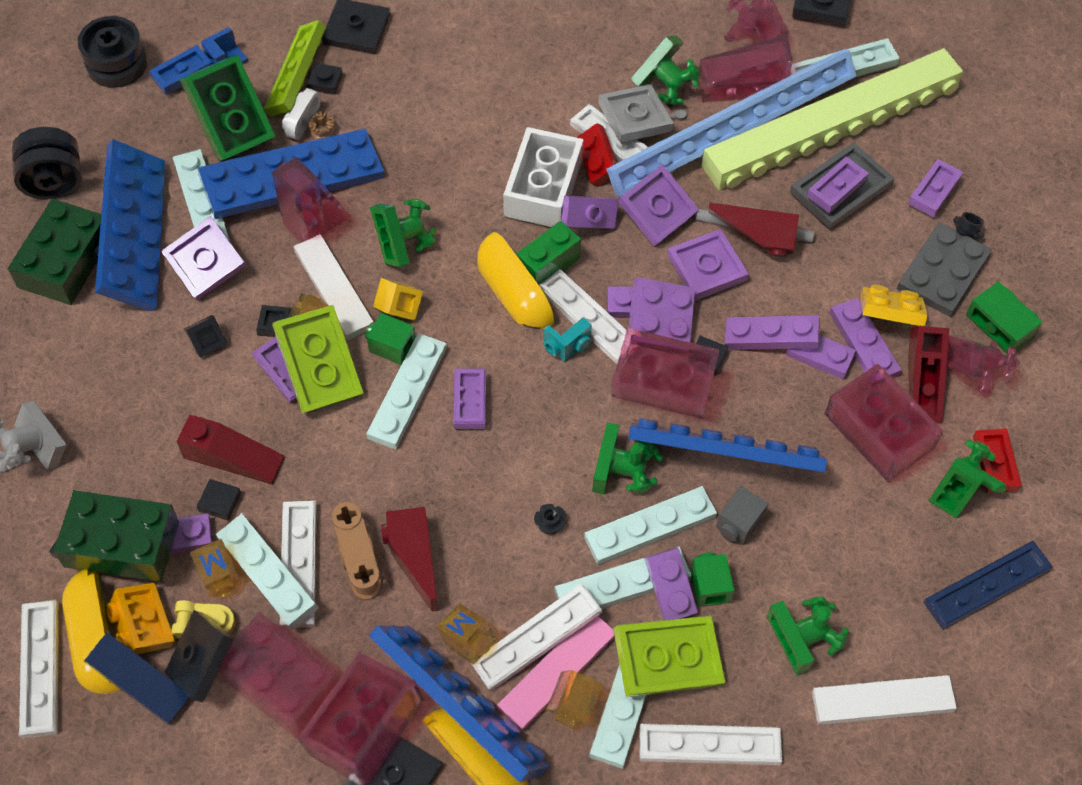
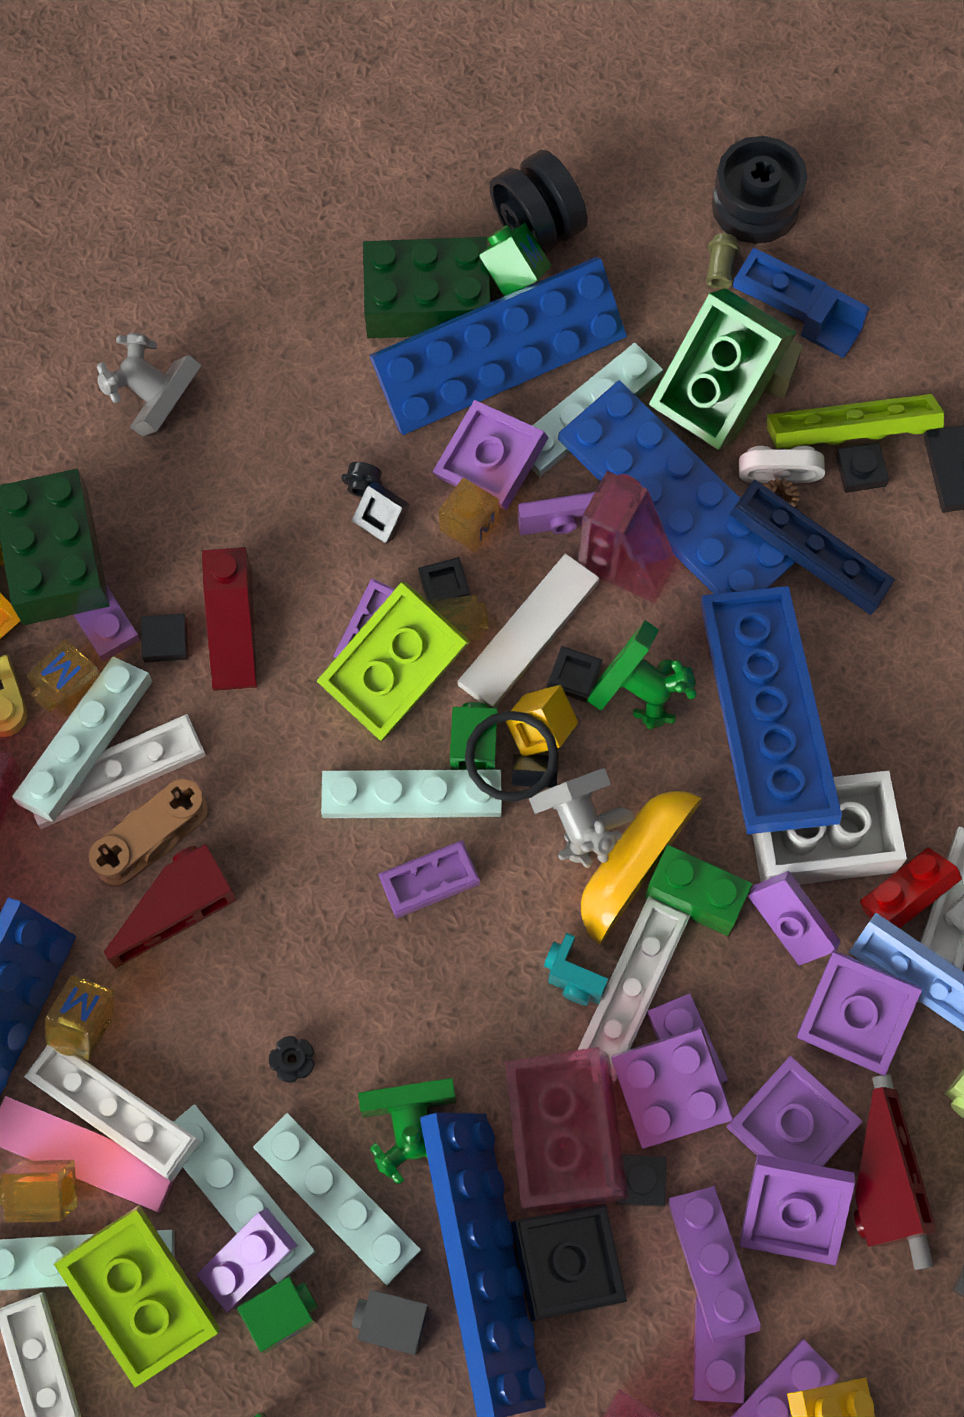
camera: 70 degrees right, 10 degrees up
(79, 188) = (514, 258): none -> brick
(140, 89) = (723, 253): none -> olive pin
(174, 339) = (360, 476): none -> black plate
(238, 285) = (469, 514): none -> clear yellow brick
(266, 237) = (555, 514): none -> medium lavender plate
(363, 117) = (812, 547): none -> dark blue tile
(373, 270) = (575, 673): none -> black tile
(414, 339) = (504, 795): none -> black piece
(429, 313) = (530, 769): none -> black tile
(459, 168) = (769, 711): none -> blue plate
(468, 294) = (577, 813): none -> light grey piece
(741, 408) = (568, 1262): none -> black plate
(759, 276) = (797, 1209): none -> medium lavender plate

